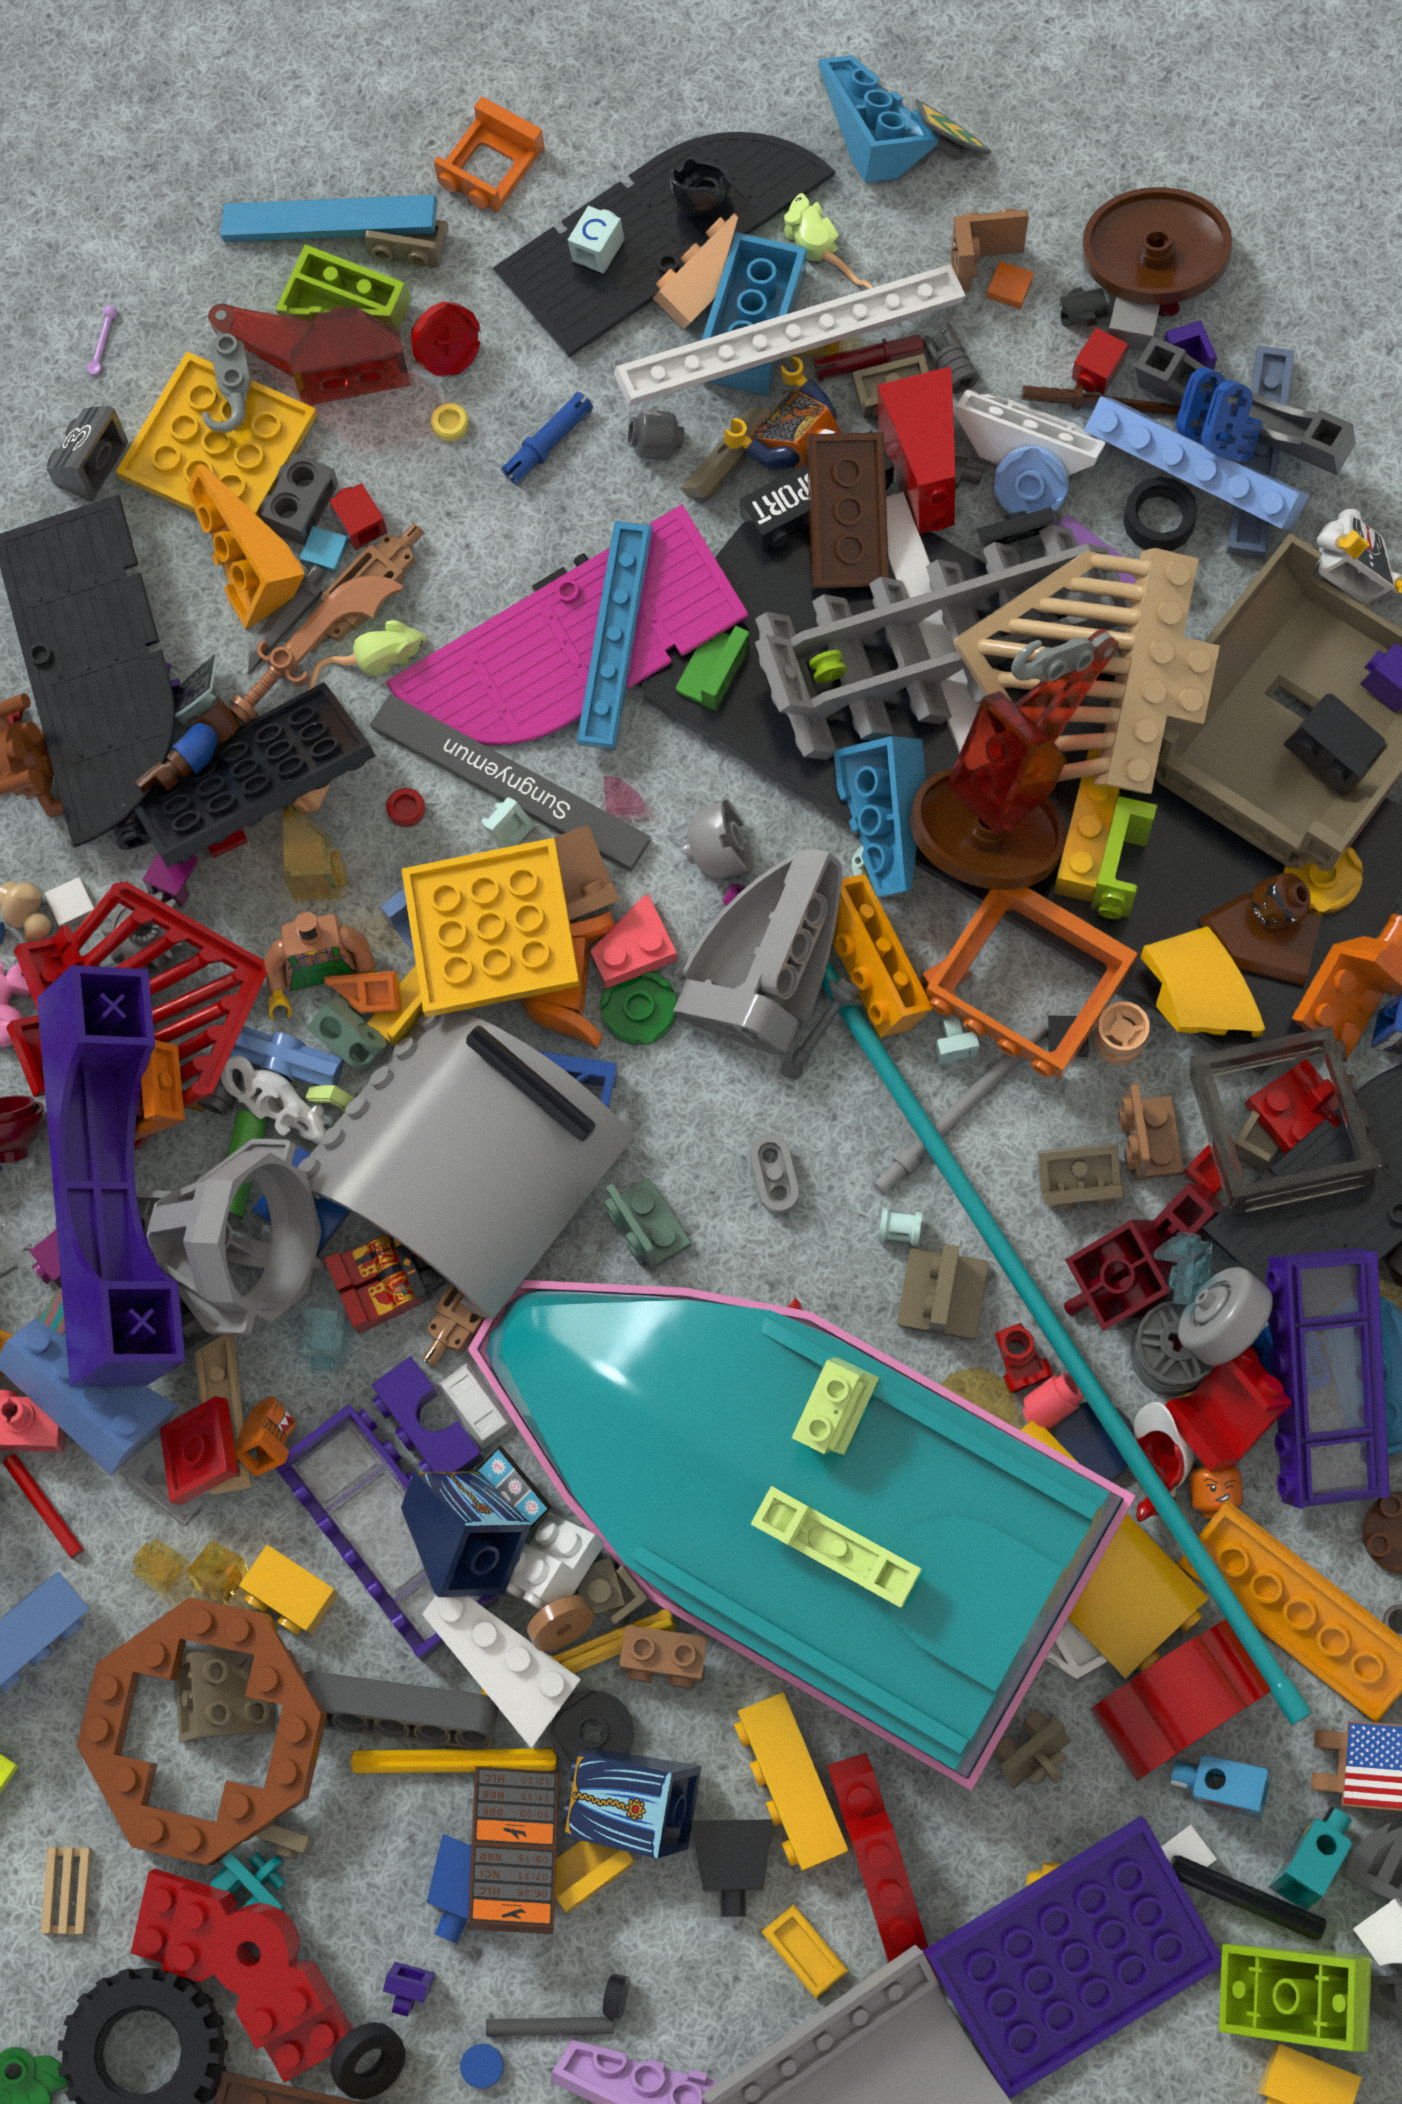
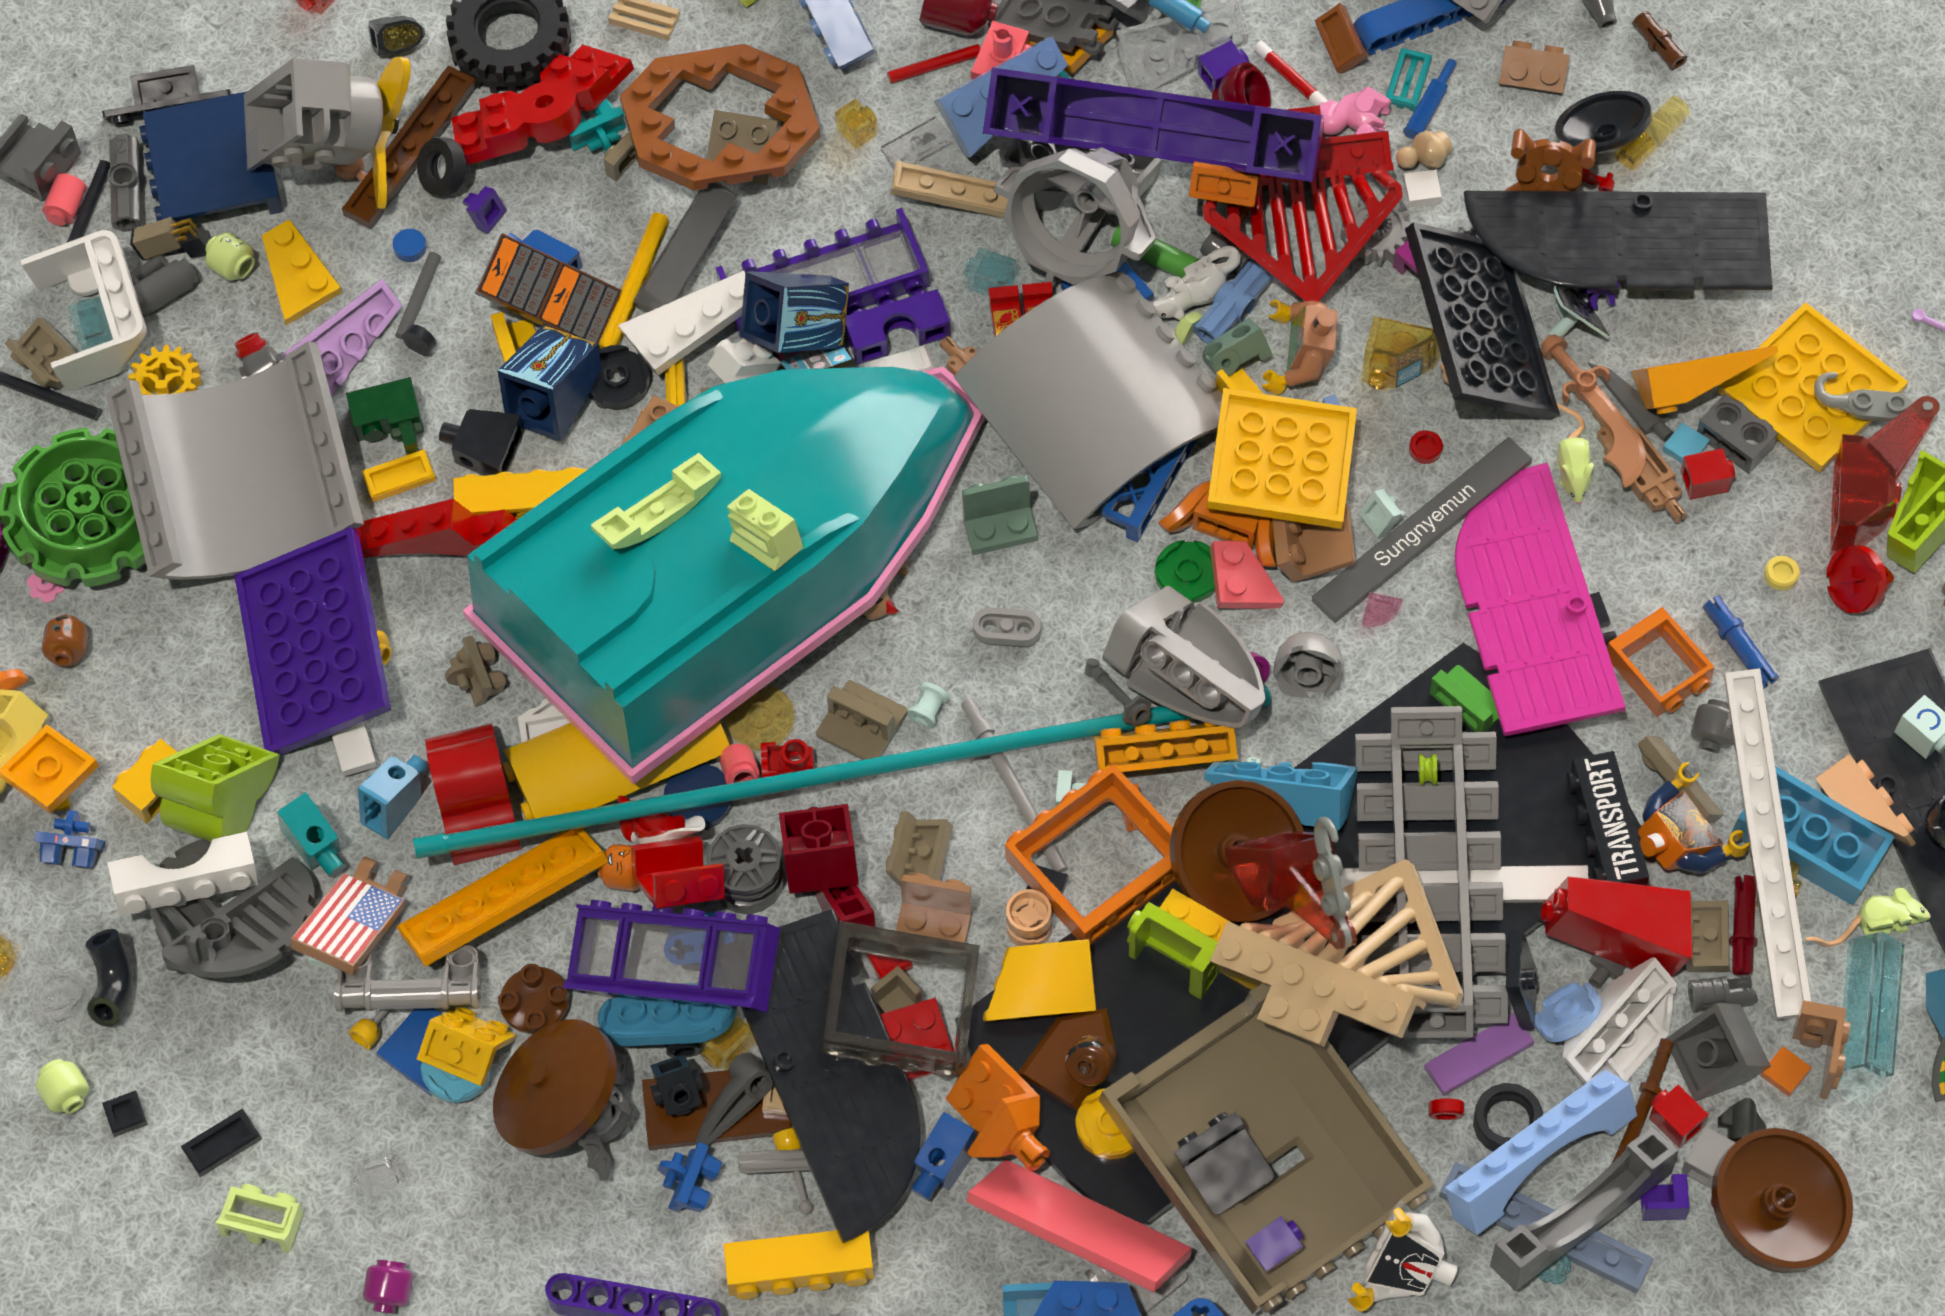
camera: 105 degrees right, 10 degrees down
(88, 452) = (1827, 284): dark grey slope -> none
(194, 748) = (1521, 294): reddish brown piece -> none
(198, 1450) = (927, 157): red plate -> none
(217, 1572) = (835, 158): clear yellow plate -> none
(267, 1431) = (926, 210): orange leg -> none
(288, 1590) = (803, 202): yellow brick -> none
(368, 991) = (1266, 372): orange tile -> none
(530, 1083) = (1130, 439): black axle -> none
(560, 1623) = (699, 361): medium nougat piece -> none
(612, 465) = (1641, 635): none -> orange window
(615, 635) = (1522, 628): dark azure tile -> none
(724, 1992) = (387, 410): none -> dark green hinge
(847, 509) = (1575, 833): reddish brown tile -> none
(903, 227) = (1873, 1002): none -> clear light blue panel
(1017, 343) = (1718, 1051): none -> dark grey slope
(1192, 1267) = (801, 878): clear light blue bracket -> none
(1224, 427) = (1567, 1172): blue piece -> none
(1225, 1316) = (743, 878): light grey wheel -> none
(1248, 1898) = (307, 778): black axle -> none

